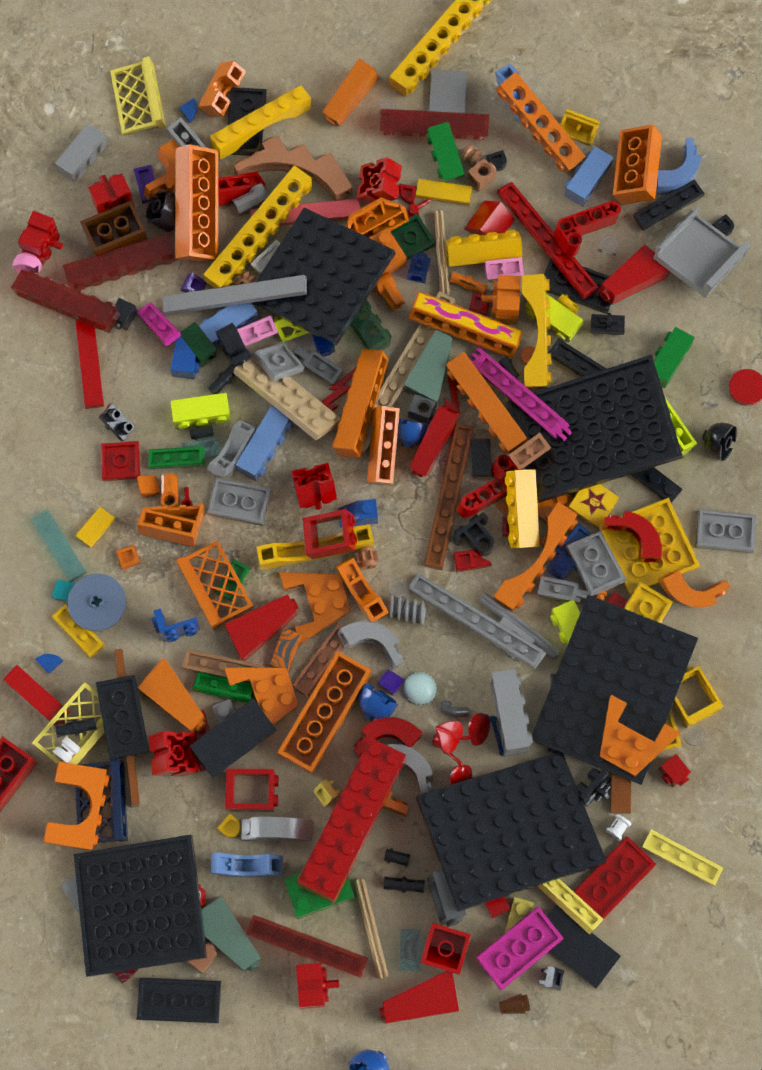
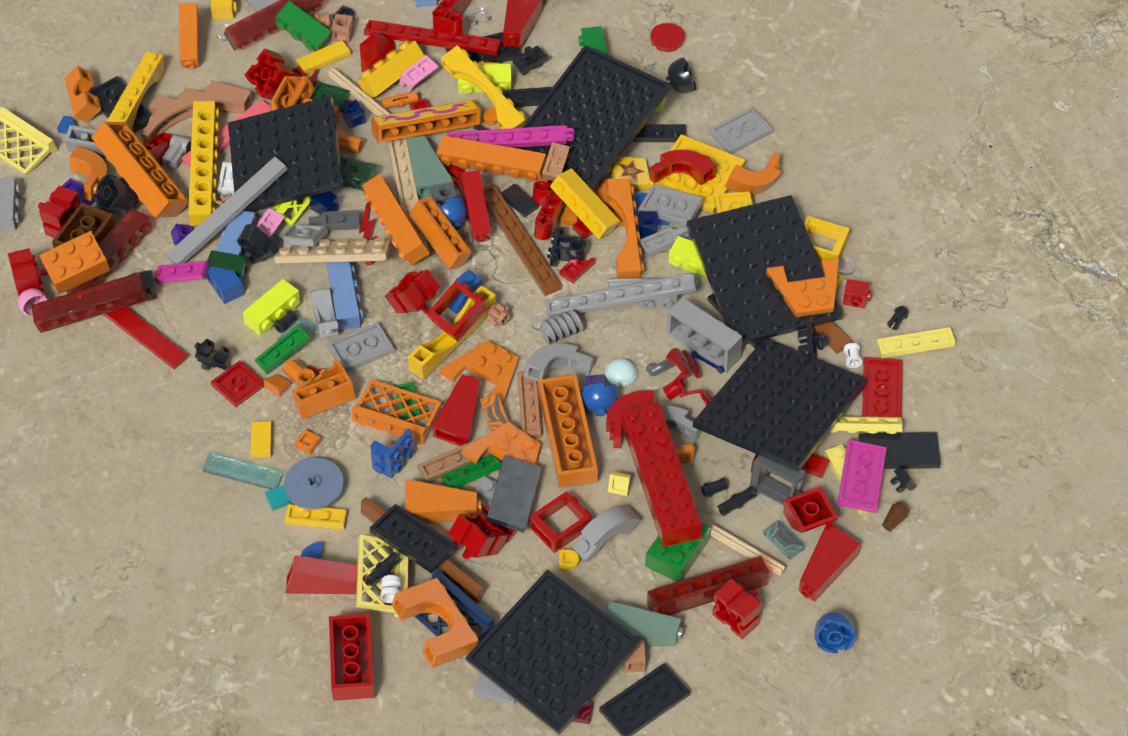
camera: 40 degrees left, 20 degrees down
(76, 257) = (74, 262): none -> orange brick
(223, 380) = (269, 275): black pin -> none
(247, 865) = (611, 570): medium blue arch -> none
(360, 590) = (516, 339): orange arch -> none
(505, 299) = (440, 85): orange brick -> none
(690, 821) = (899, 315): none -> black pin

